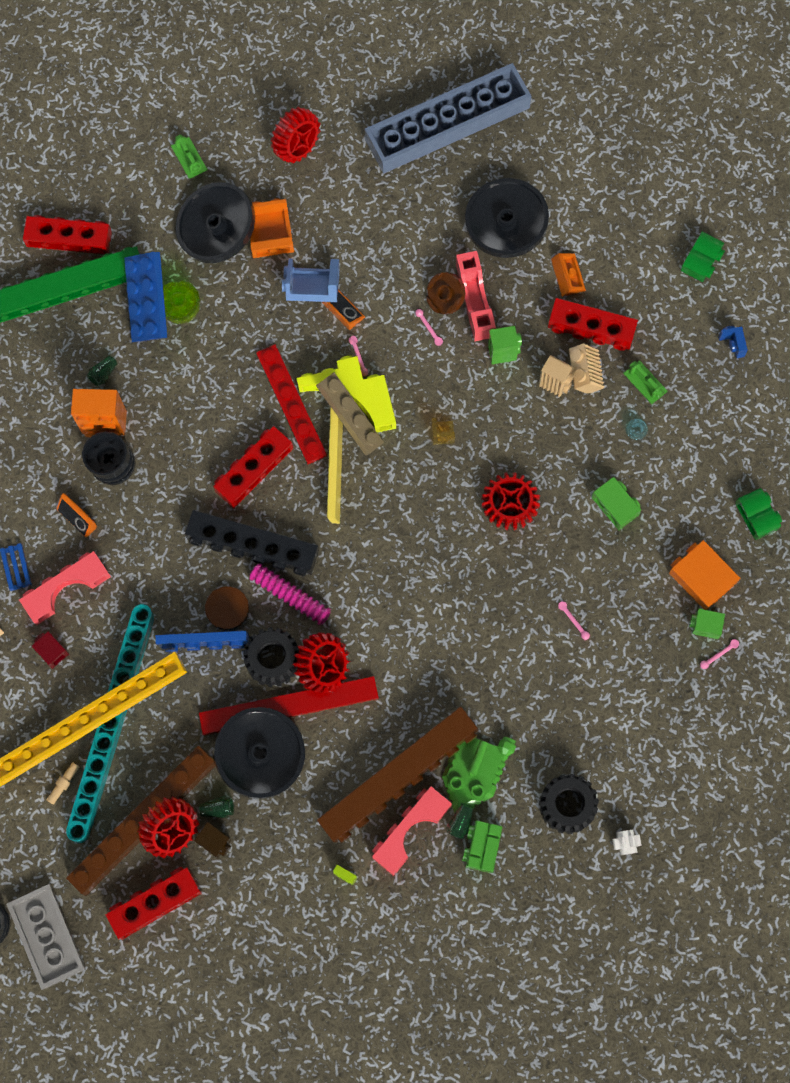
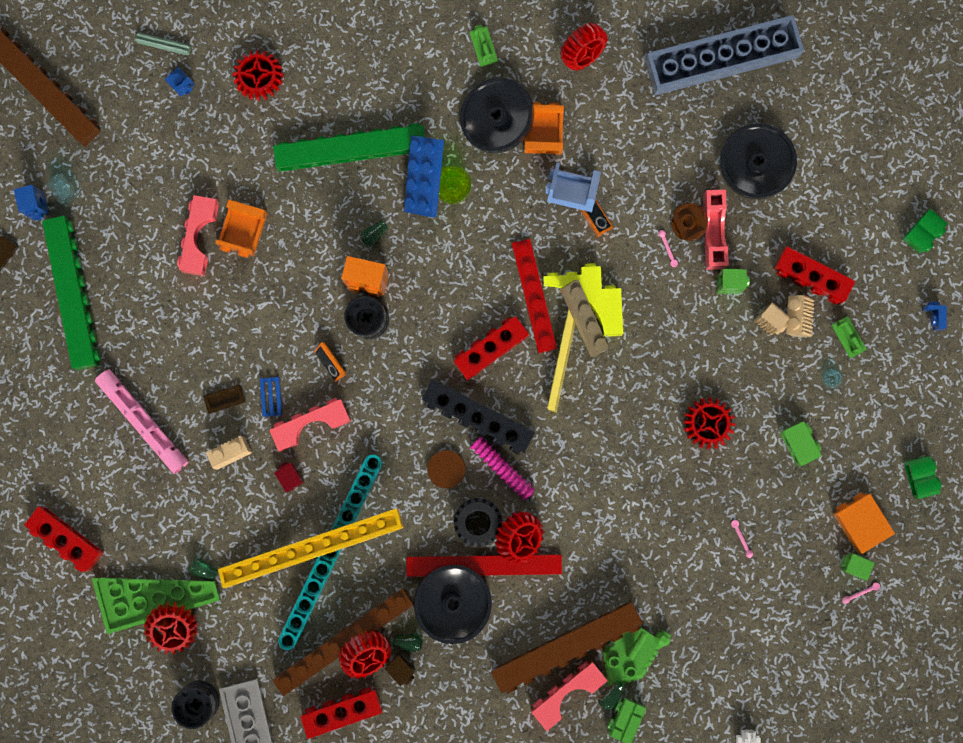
camera: 10 degrees right, 10 degrees up
(36, 226) = (338, 85): red brick -> none
(62, 783) = (281, 594): tan bar -> none
(194, 641) = (429, 499): blue plate -> none
(344, 874) = (505, 721): lime tile -> none
(353, 340) = (599, 248): bright pink hinge -> none
(442, 432) = (662, 348): clear yellow panel -> none
(554, 817) = (722, 703): black tyre -> none
(568, 274) = (801, 223): orange slope -> none

